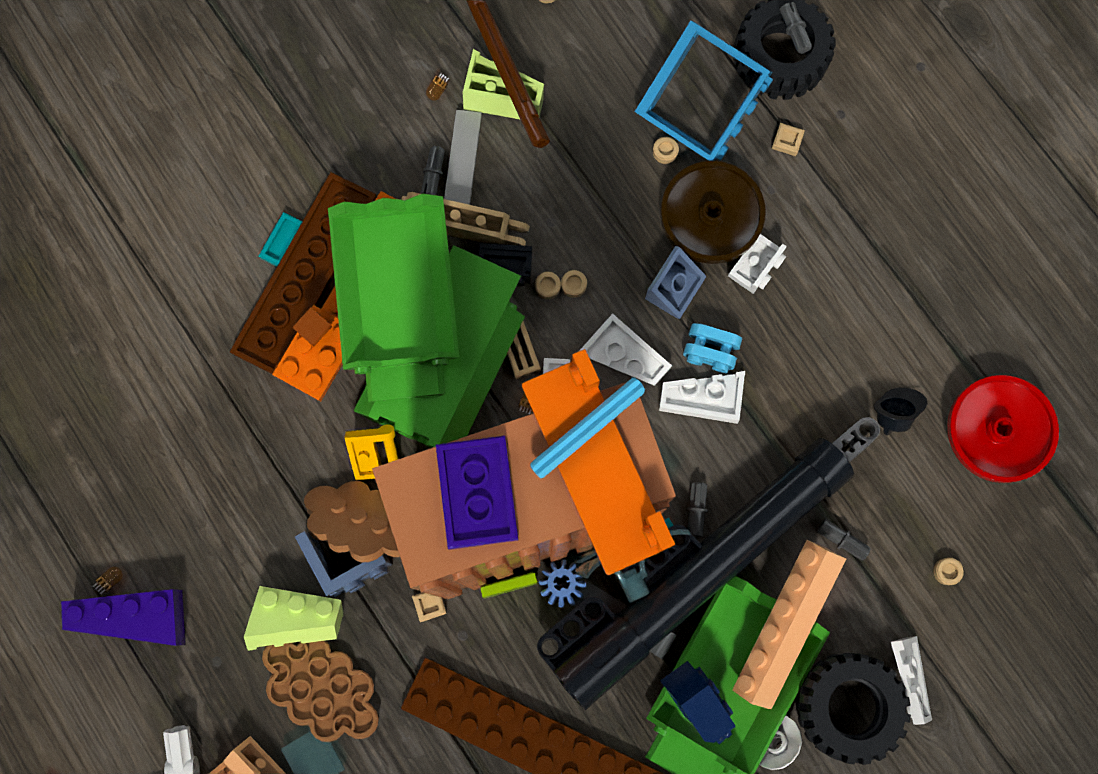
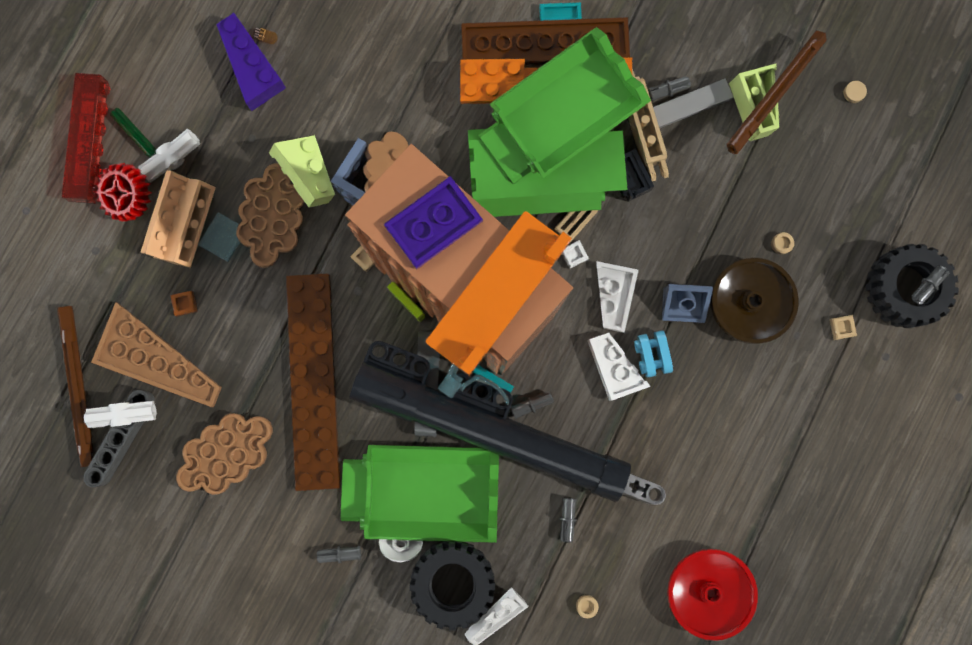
camera: 60 degrees right, 5 degrees up
(312, 326) = (507, 66): dark orange tile -> none
(364, 450) = (444, 151): yellow plate -> none
(436, 87) = (734, 56): clear orange piece -> none
(547, 285) = (633, 214): tan tile -> none
(563, 593) = (419, 340): medium blue gear -> none
(574, 283) = (645, 232): tan tile -> none
(587, 427) = (519, 272): medium azure axle -> none
(669, 69) = (840, 211): dark azure window -> none
(700, 702) = (396, 475): dark blue hinge -> none
(756, 263) = (734, 353): white bracket -> none
(788, 625) = (485, 509): light nougat brick -> none
(899, 409) = (684, 511): black piece -> none

